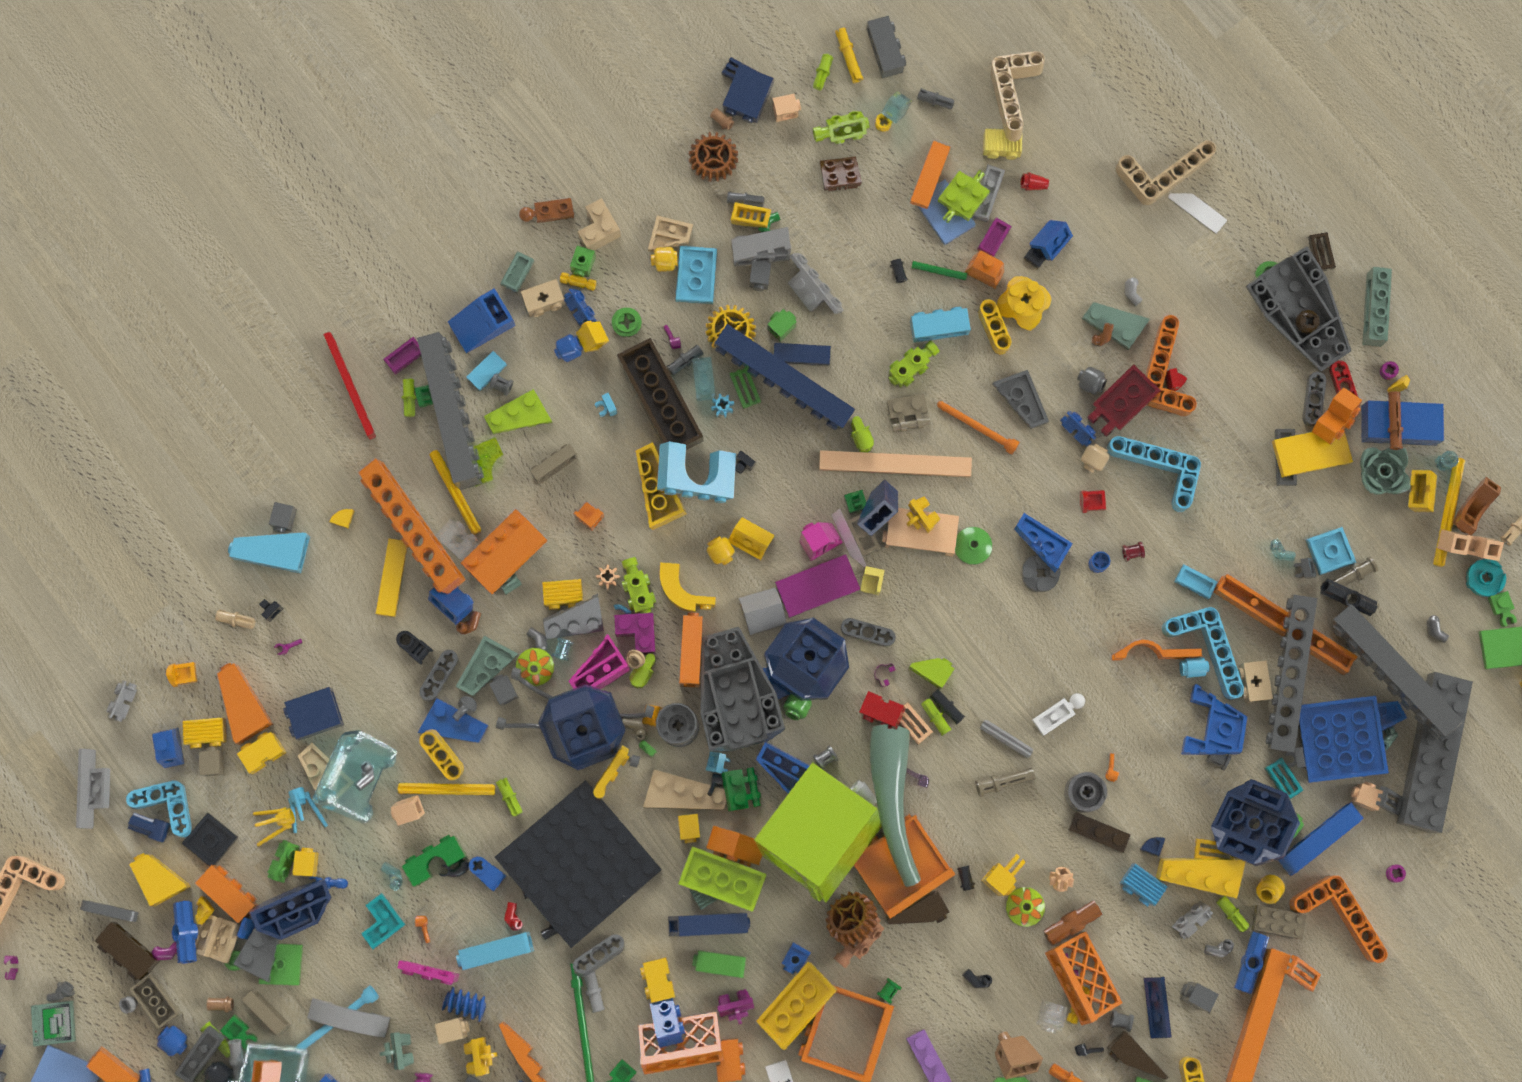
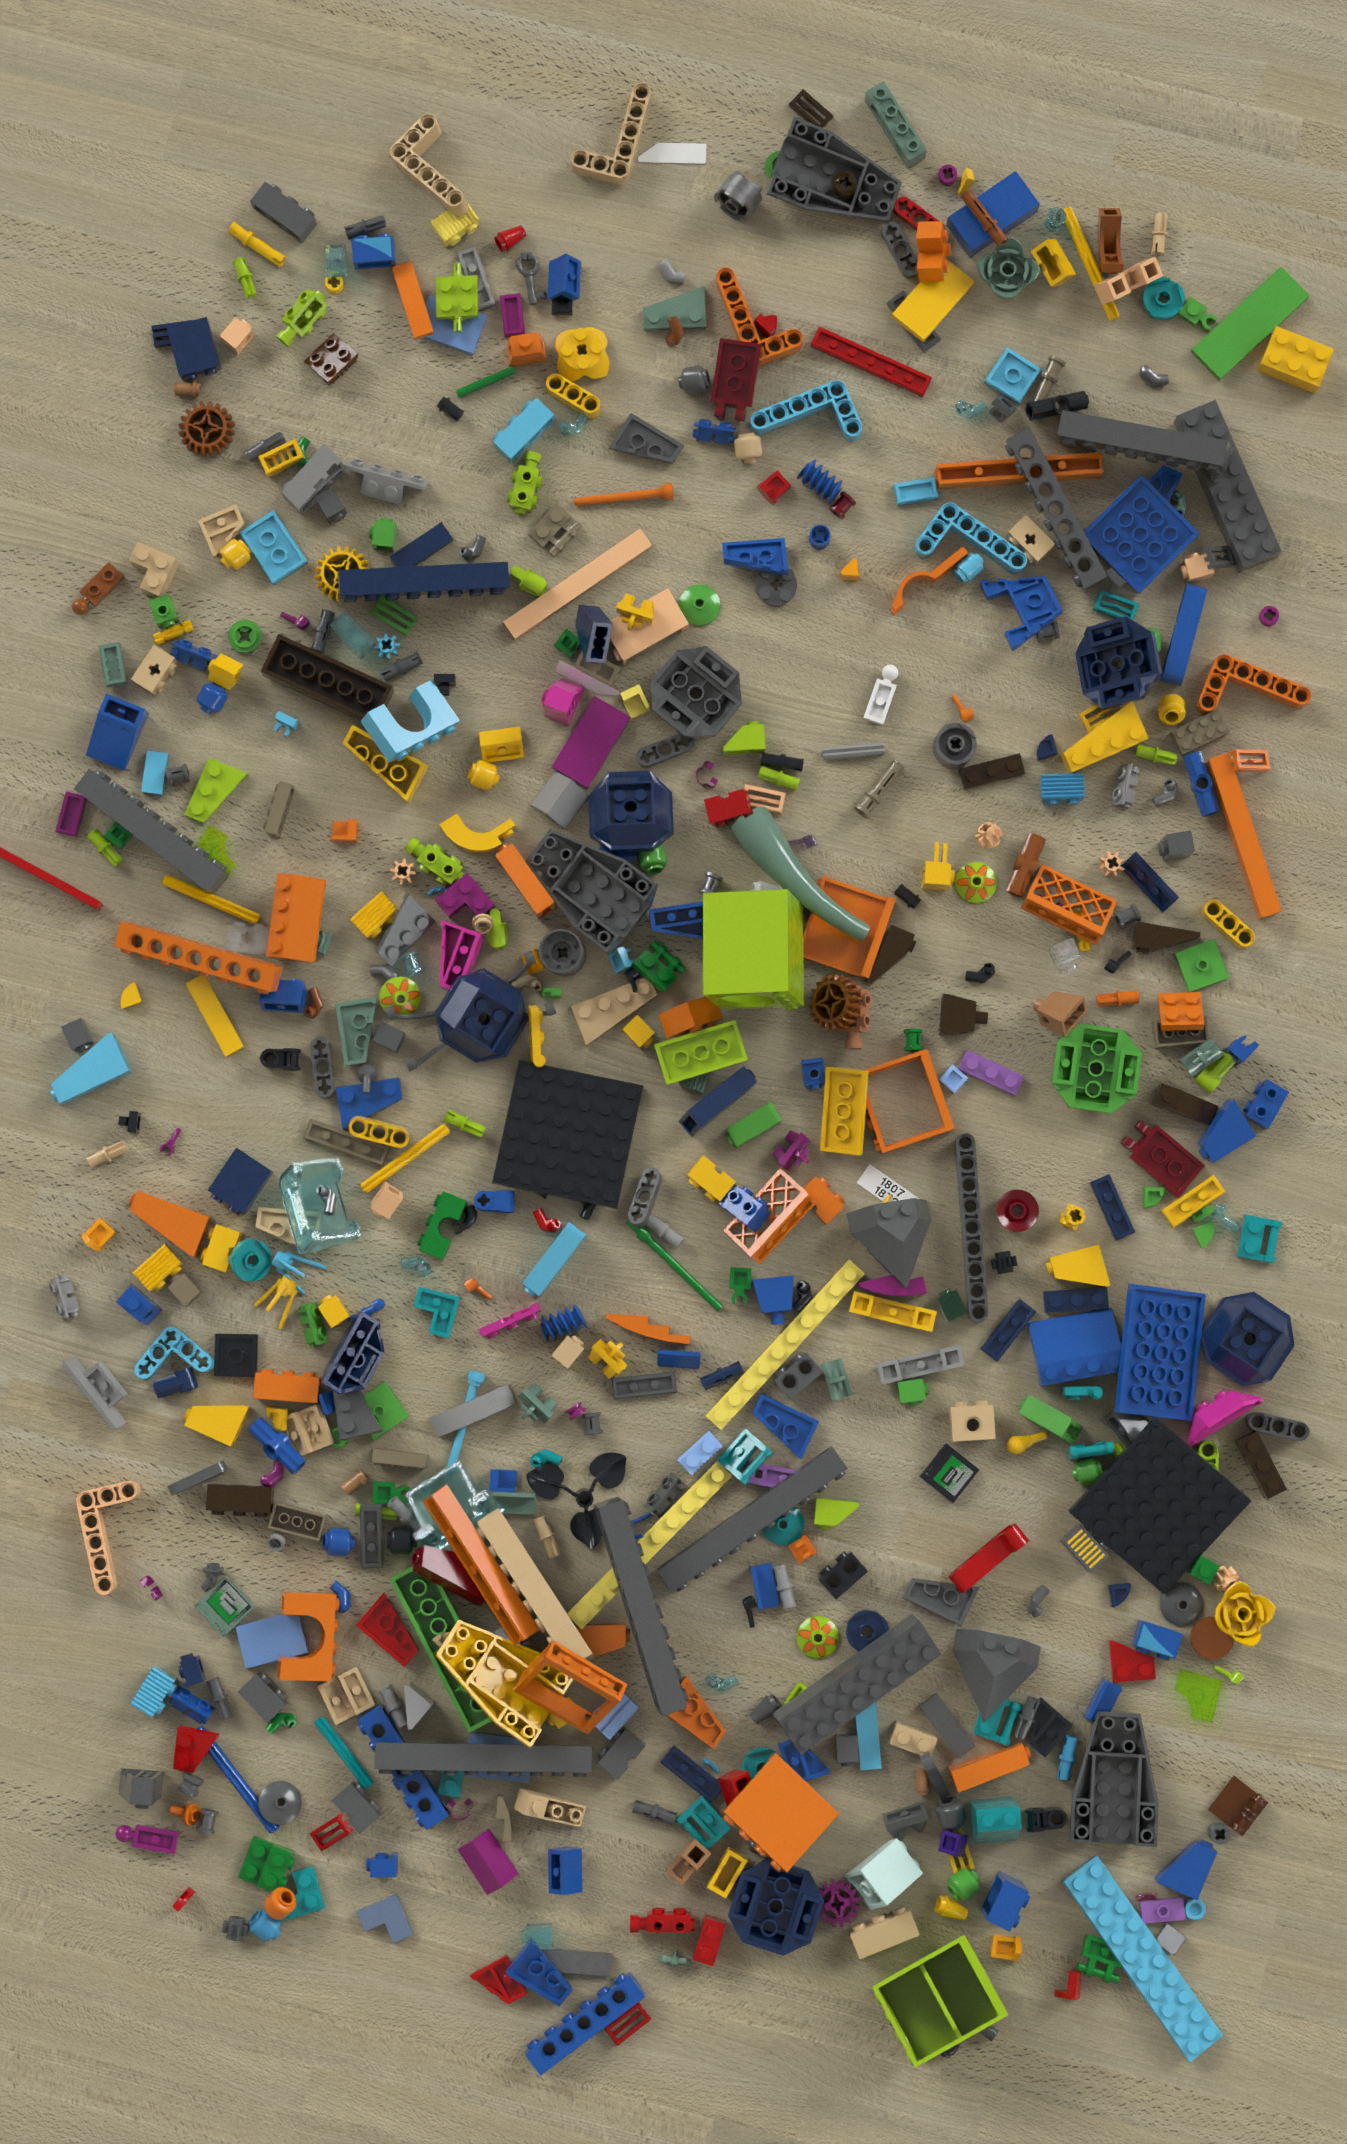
camera: 30 degrees left, 5 degrees up
(274, 767) = (261, 1259): none -> teal plate
(409, 740) = (346, 1142): none -> dark tan tile
(722, 427) = (401, 666): none -> dark grey pin
(837, 384) = (473, 551): none -> dark grey arm
(897, 1043) = (953, 1079): none -> light blue tile
(928, 120) = (373, 251): none -> blue brick
(937, 999) = (959, 1015): none -> dark brown torso
(940, 599) = (701, 671): none -> dark grey piece
(977, 349) = (573, 427): none -> clear light blue arm
(1020, 234) = (533, 295): none -> dark grey piece
(1103, 604) = (850, 571): none -> light orange slope
(1130, 521) = (820, 481): none -> blue piece
(1144, 973) = (1117, 862): none -> light nougat gear
(1223, 273) = (738, 196): none -> flat silver brick
(1232, 463) = (871, 361): none -> red tile

